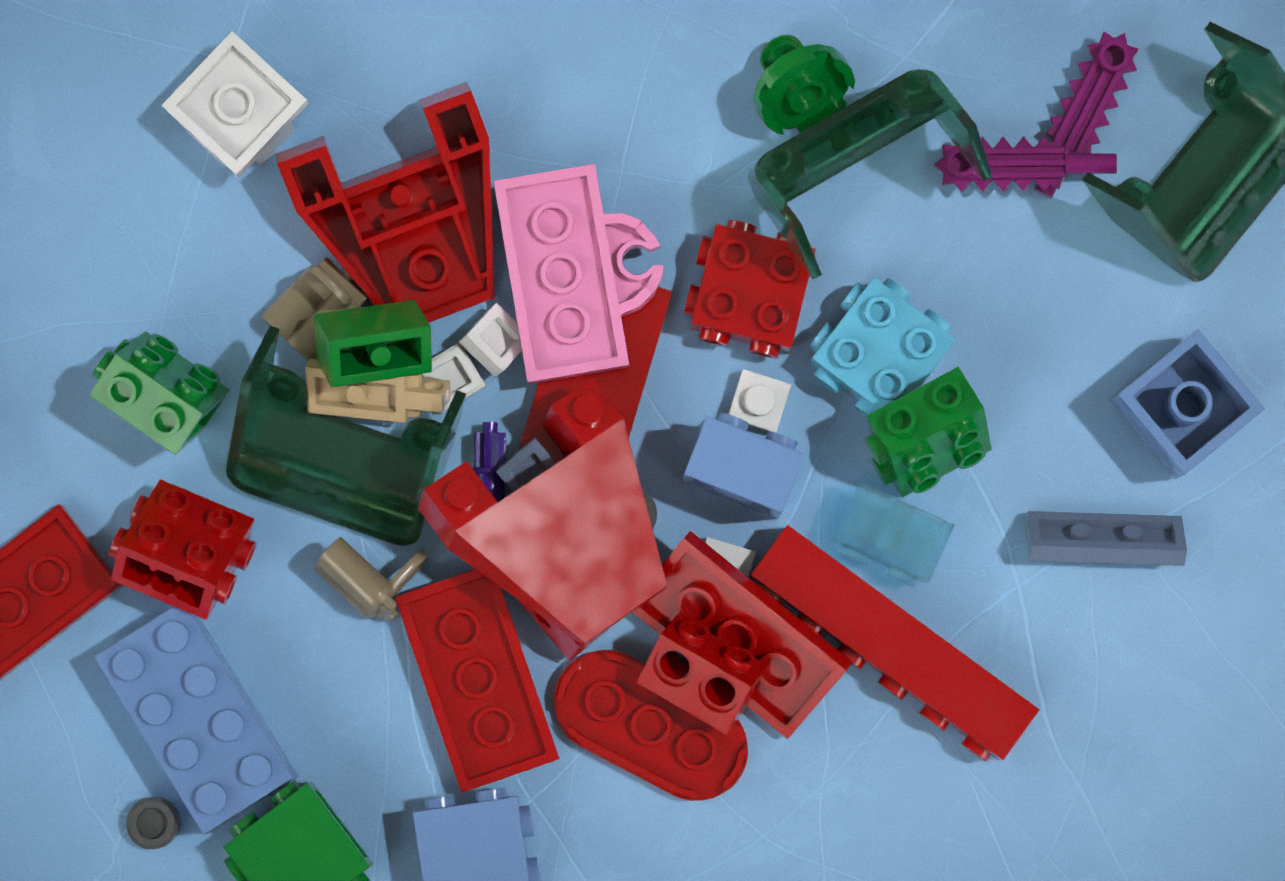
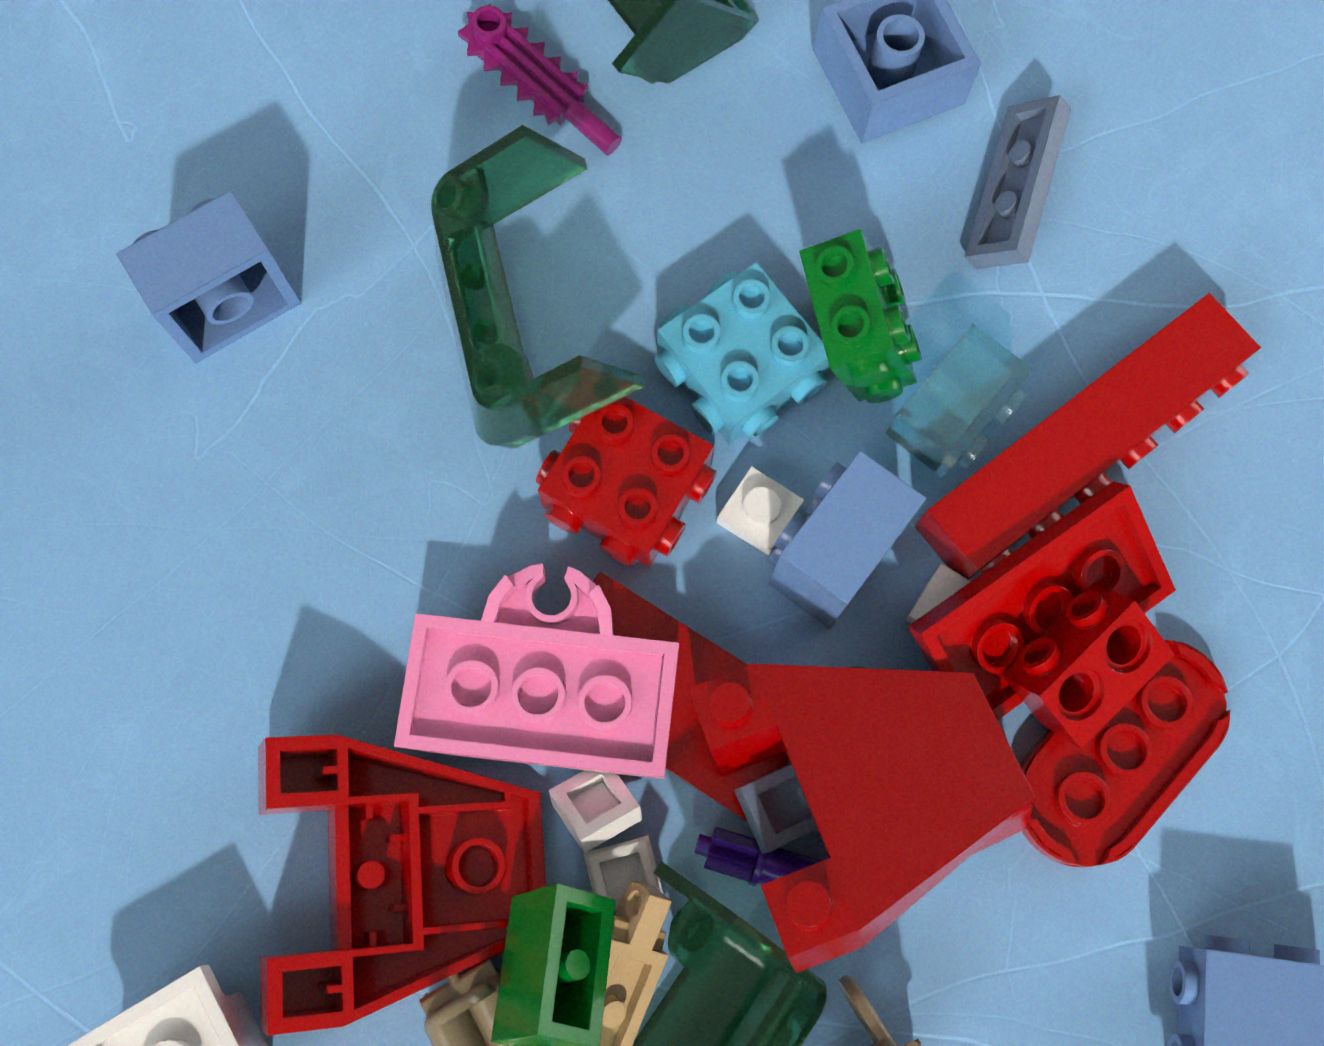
camera: 75 degrees left, 10 degrees down
(477, 679) = (1026, 959): red plate -> none
(800, 84) = (404, 348): green tile -> none
(1023, 165) = (582, 127): magenta piece -> none

